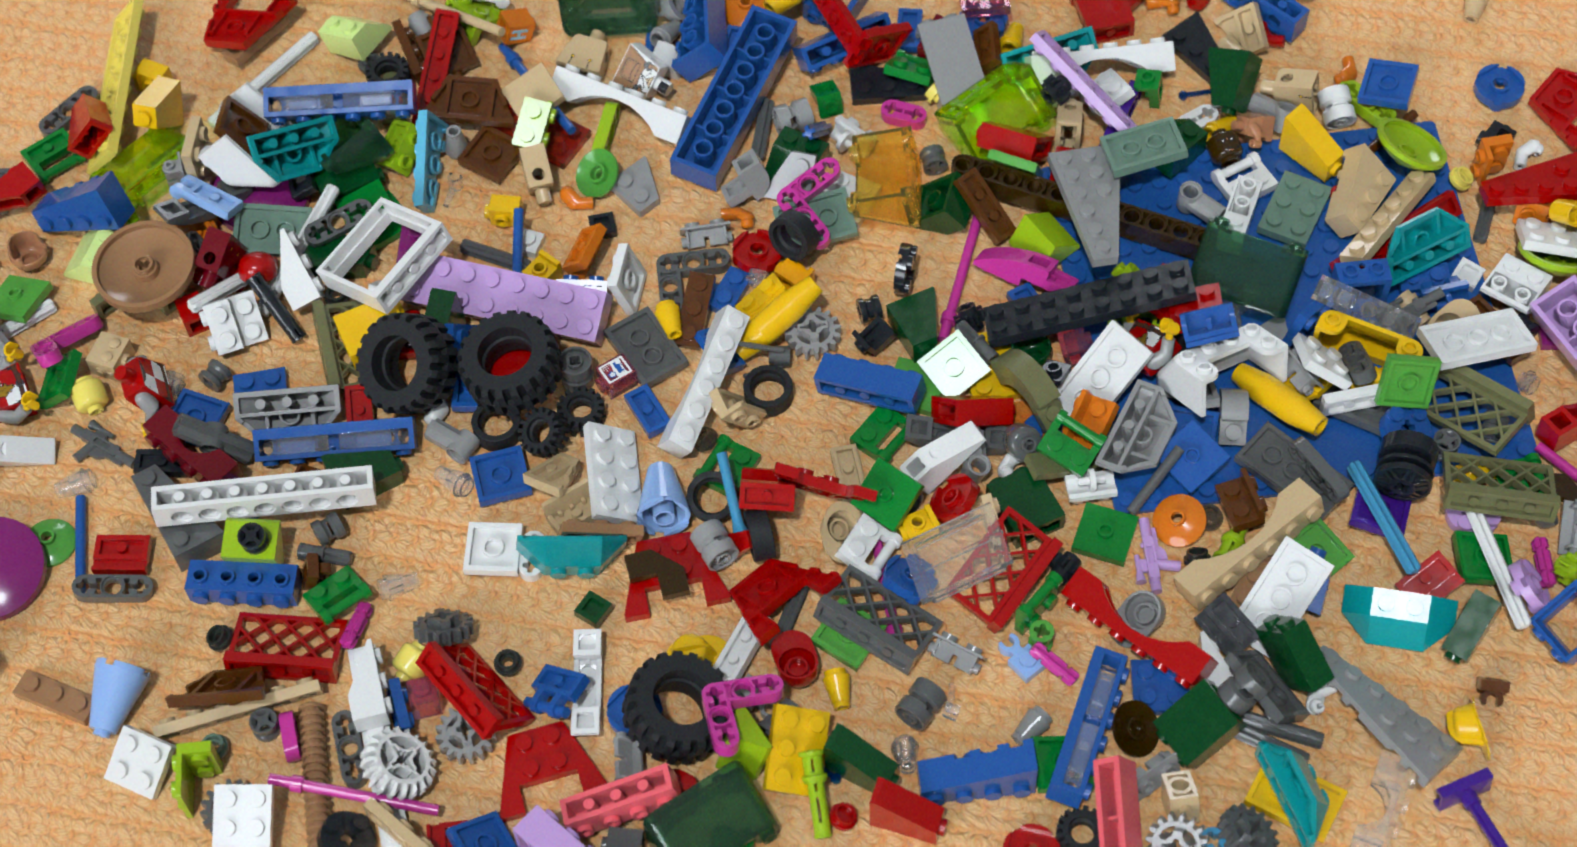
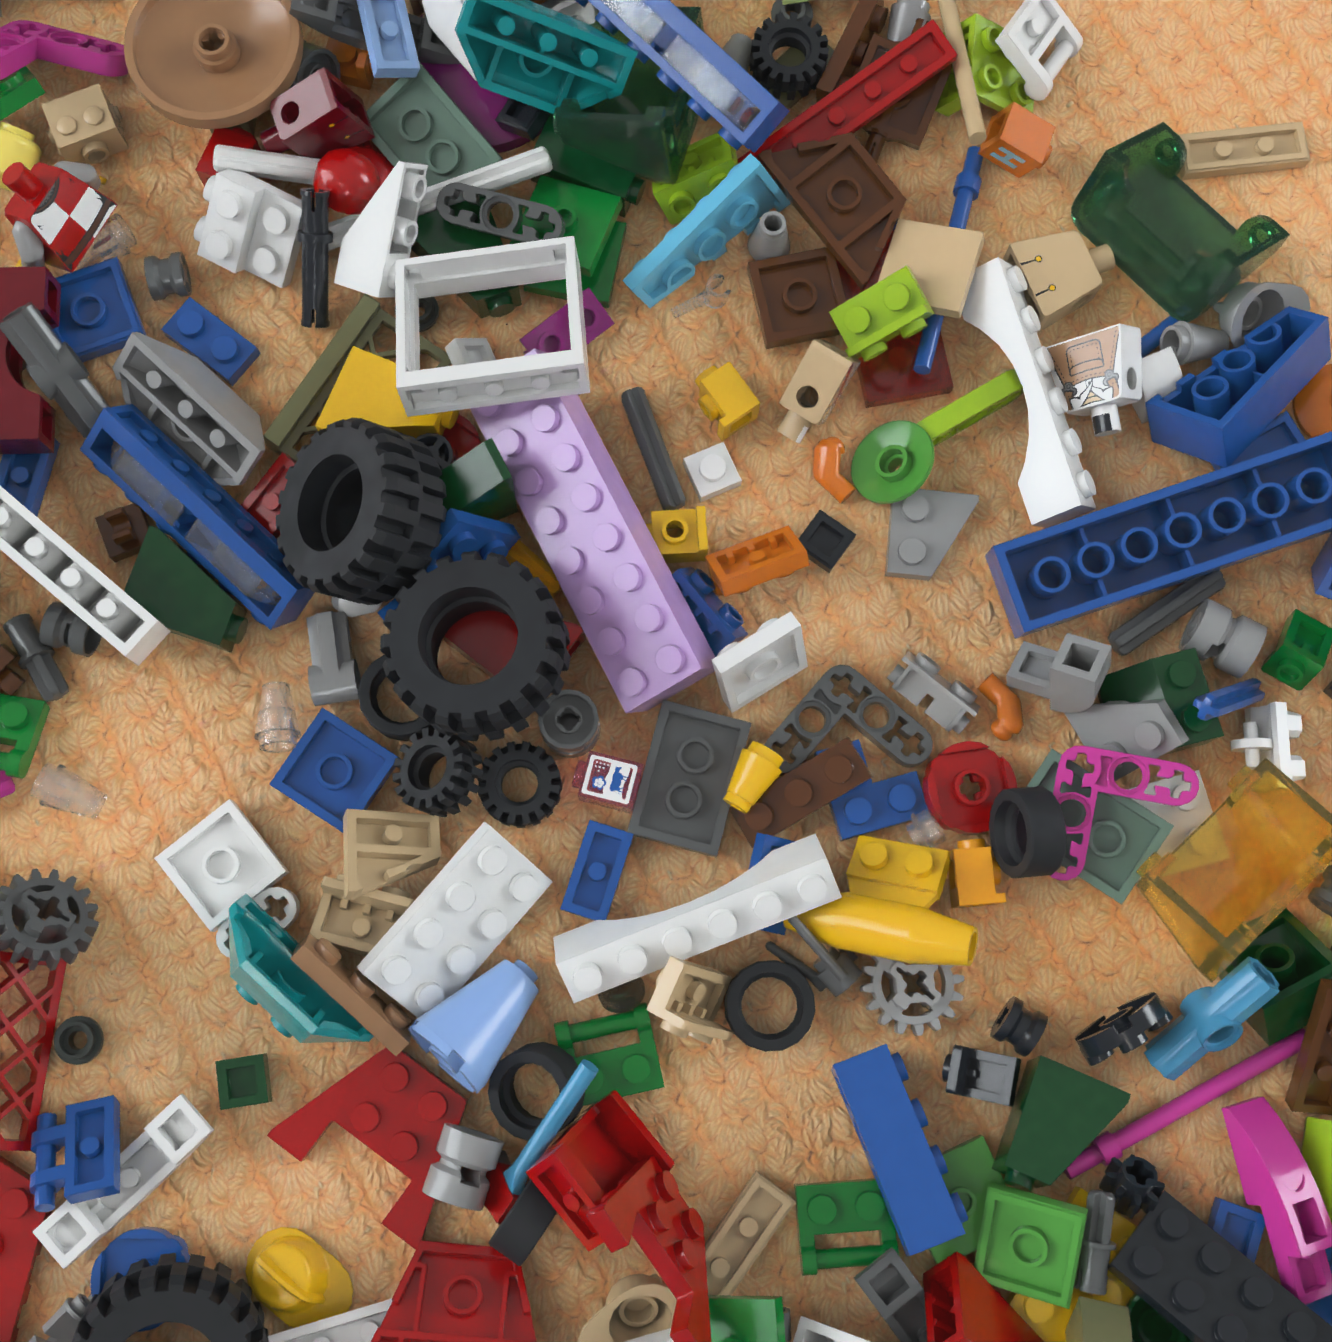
camera: 40 degrees right, 20 degrees up
(517, 255) = (686, 467): blue bar -> none
(650, 565) = (370, 1146): dark brown tile -> none
(932, 235) = (1211, 1018): none -> dark azure piece

